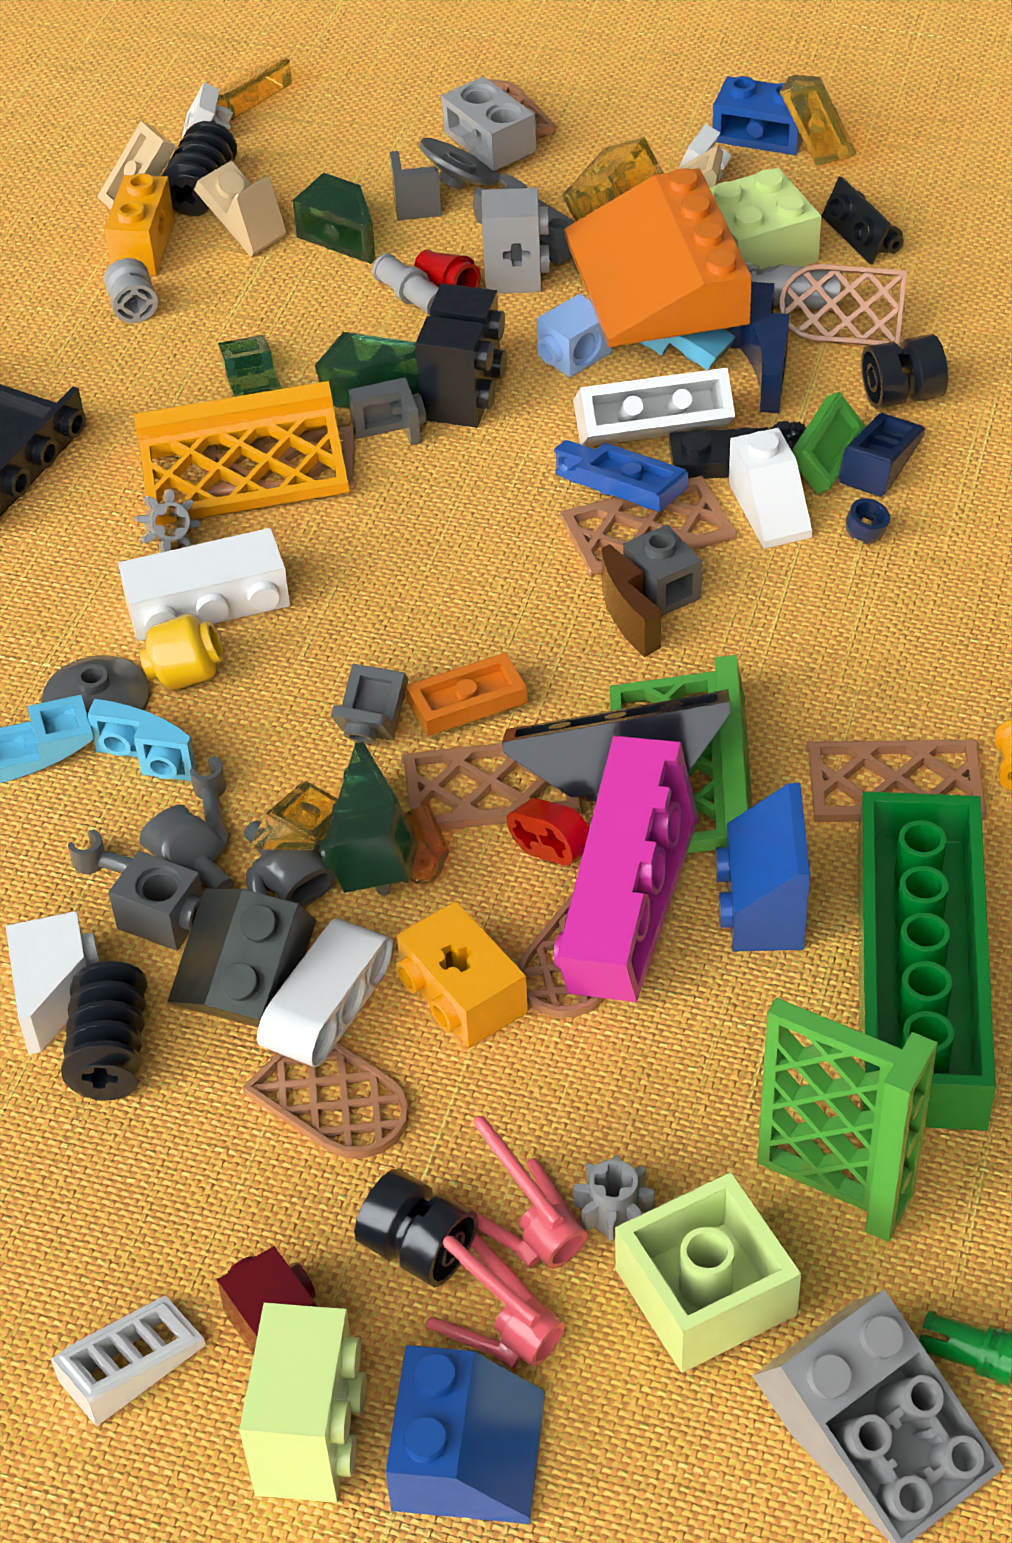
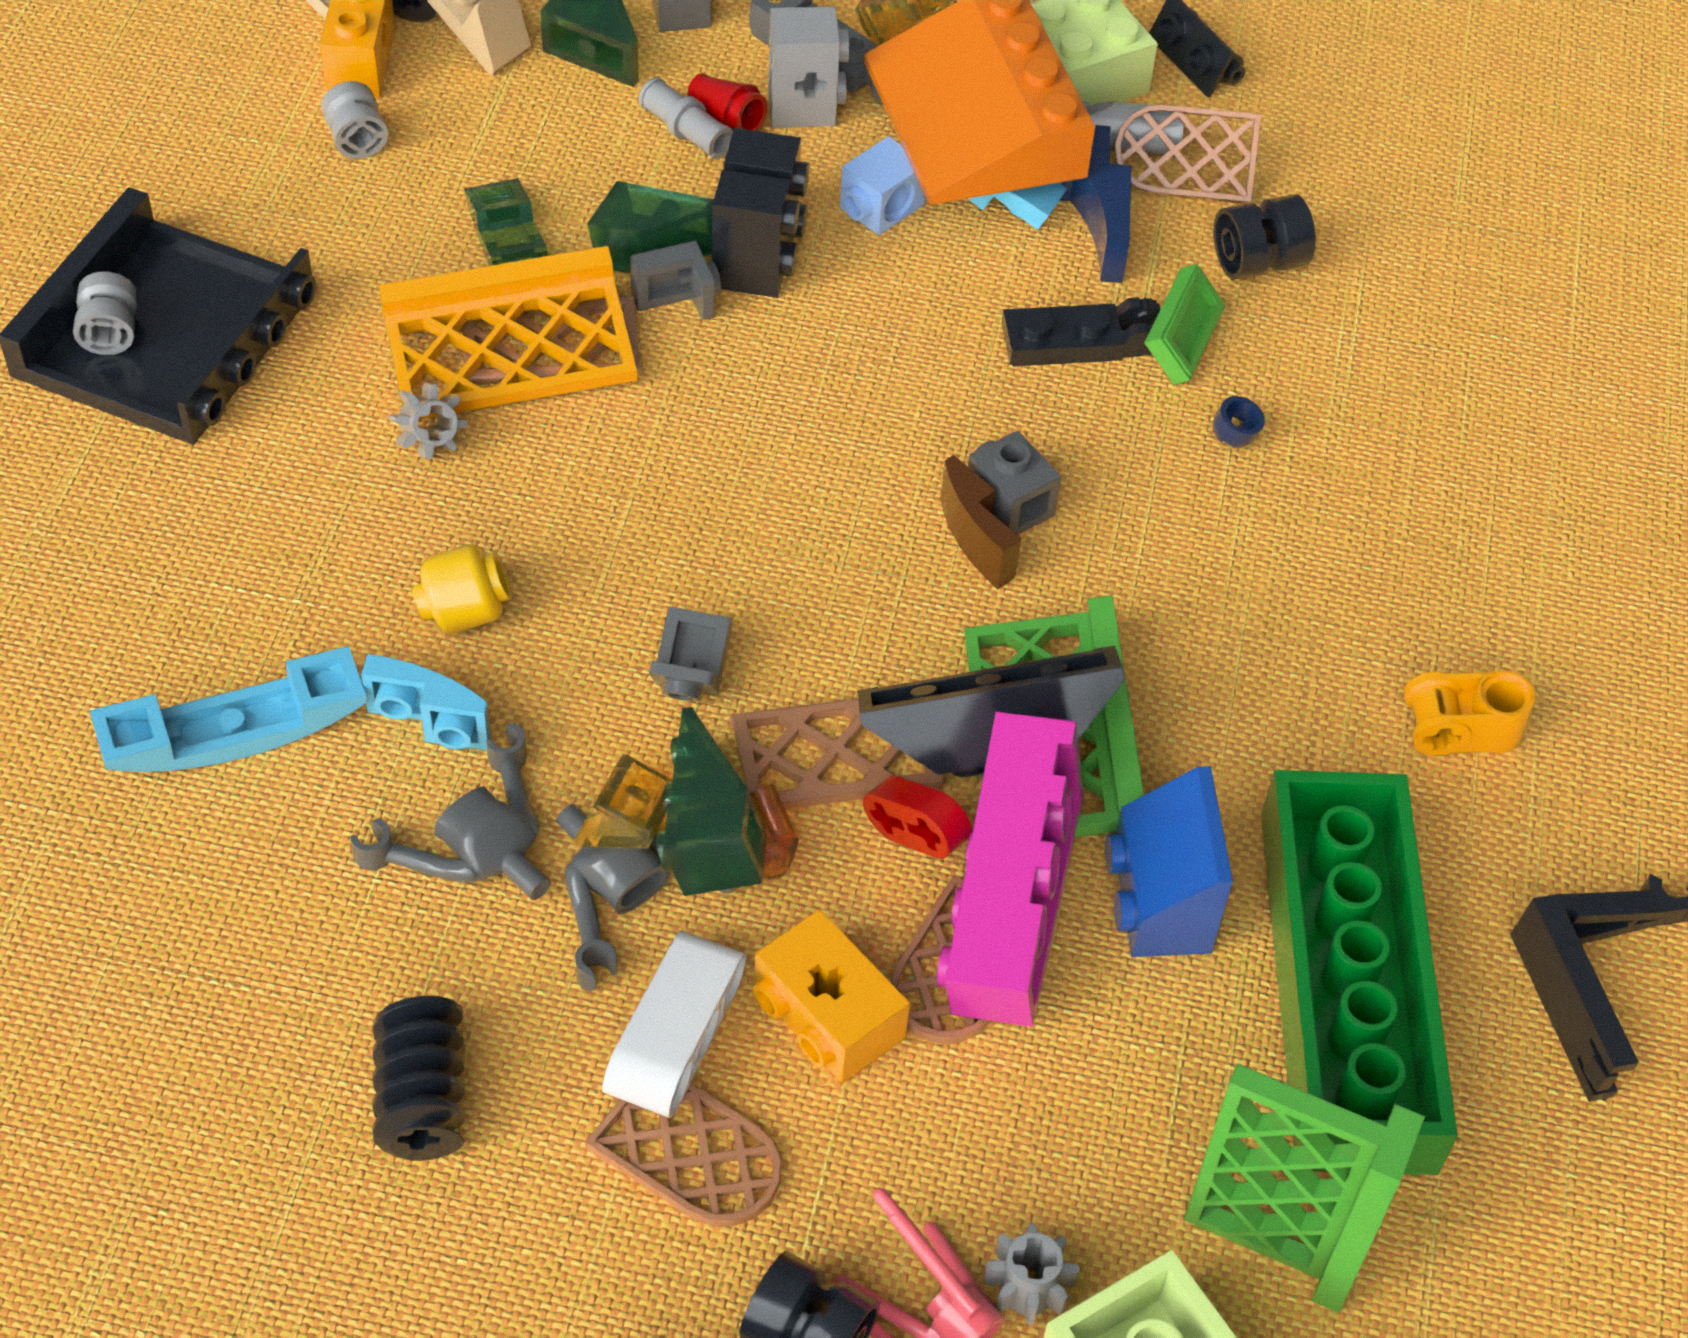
camera: 10 degrees left, 5 degrees up
(43, 963) = (341, 993): white slope -> none
(100, 678) = (388, 624): dark grey dish -> none
(156, 900) = (458, 885): dark grey brick -> none
(207, 579) = (480, 500): white brick -> none
(240, 953) = (571, 981): pearl dark grey slope -> none
(466, 694) = (800, 640): orange plate -> none
(611, 510) = (994, 388): nougat window -> none
(621, 473) = (954, 362): blue hinge -> none
(653, 407) = (986, 280): white brick -> none
(769, 487) = (1124, 380): white slope -> none
(864, 754) = (1257, 712): nougat window -> none
(879, 453) = (1240, 339): dark blue slope -> none

